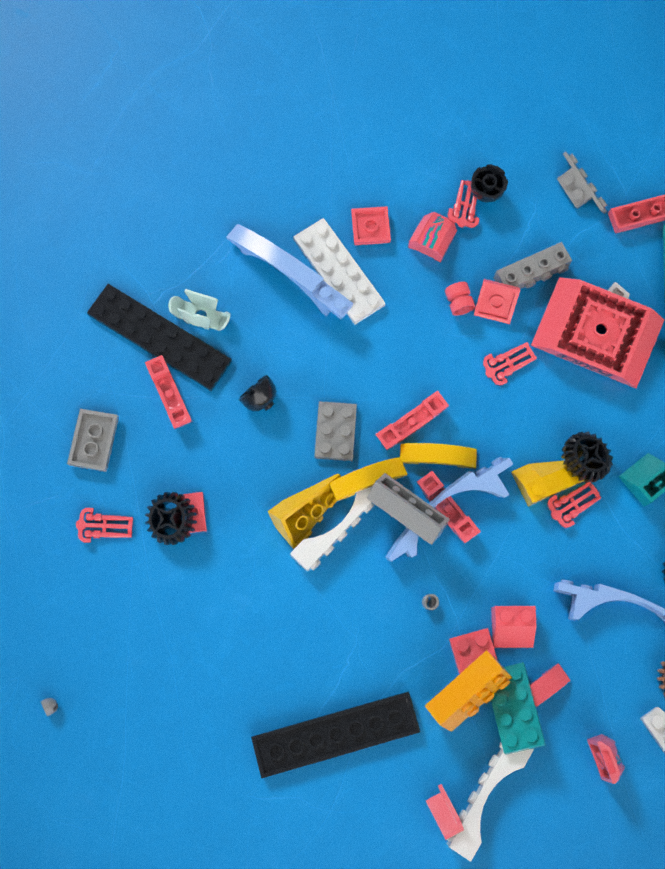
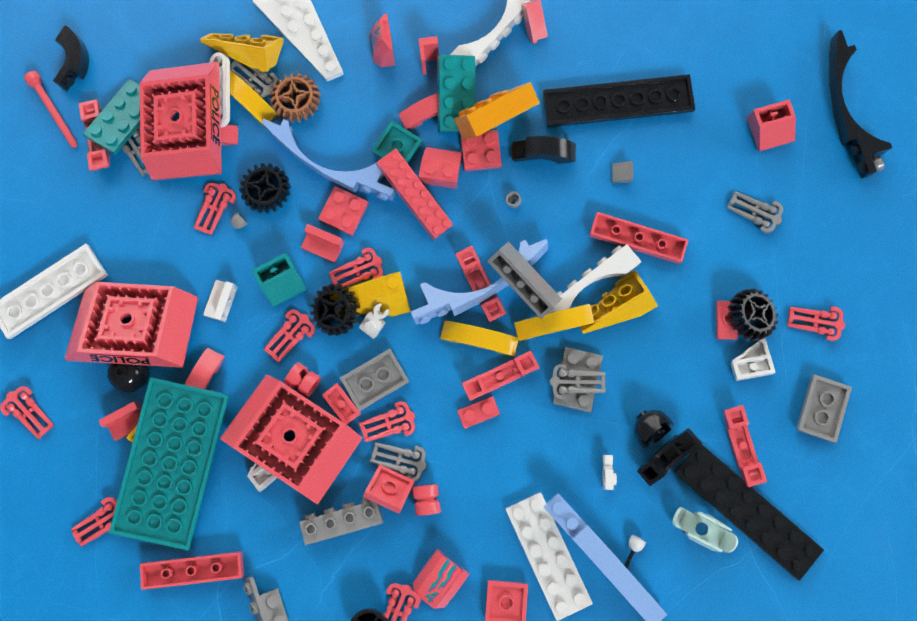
camera: 165 degrees left, 5 degrees up
(64, 725) = (862, 144): none -> black slope
(153, 625) = (775, 220): none -> light grey piece
(164, 730) = (773, 125): none -> coral slope
(165, 473) = (753, 362): none -> white wing
(241, 370) = (668, 455): none -> black arch
(260, 291) = (636, 544): none -> white hinge
(293, 344) = (608, 477): none -> white plate
(294, 582) = (638, 238): none -> coral piece
(320, 652) = (622, 172): none -> light grey slope
(358, 422) = (555, 381): none -> light grey piece
(407, 661) = (544, 148): none -> black arch
(426, 385) = (478, 412): none -> coral plate
(470, 330) = (421, 464): none -> light grey piece
(531, 399) = (374, 380): none -> light grey plate
(535, 588) = (414, 194): none -> coral piece
(545, 453) = (373, 322): none -> white plate
(558, 371) = (341, 404): none -> coral plate
(561, 752) = (428, 50): none -> coral panel
(564, 641) = (397, 138): none -> teal plate
(594, 385) = (302, 379): none -> coral wheel
(602, 563) = (343, 211): none -> coral plate
(614, 447) = (303, 319): none -> coral piece
(615, 525) = (322, 243): none -> coral panel

